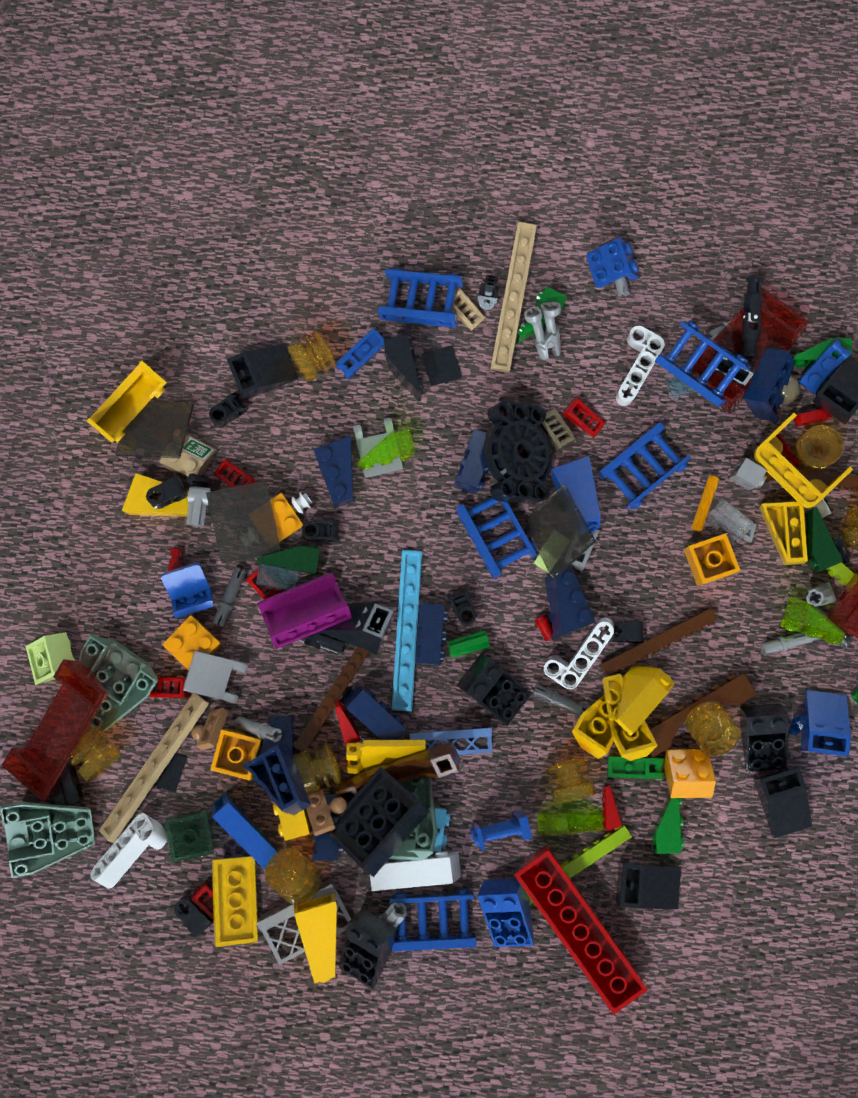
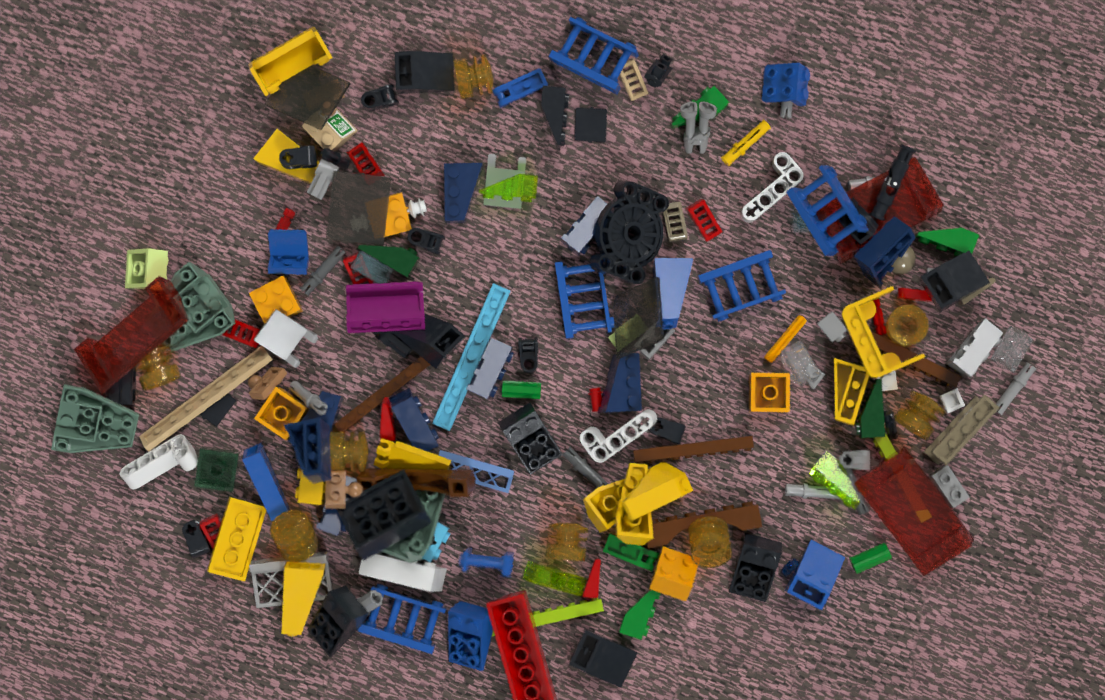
camera: 30 degrees right, 5 degrees up
(513, 297) = (681, 83): tan plate -> none
(586, 349) = (730, 157): none -> yellow pin
(784, 801) = (751, 629): black slope -> none
(823, 366) = (942, 252): blue plate -> none

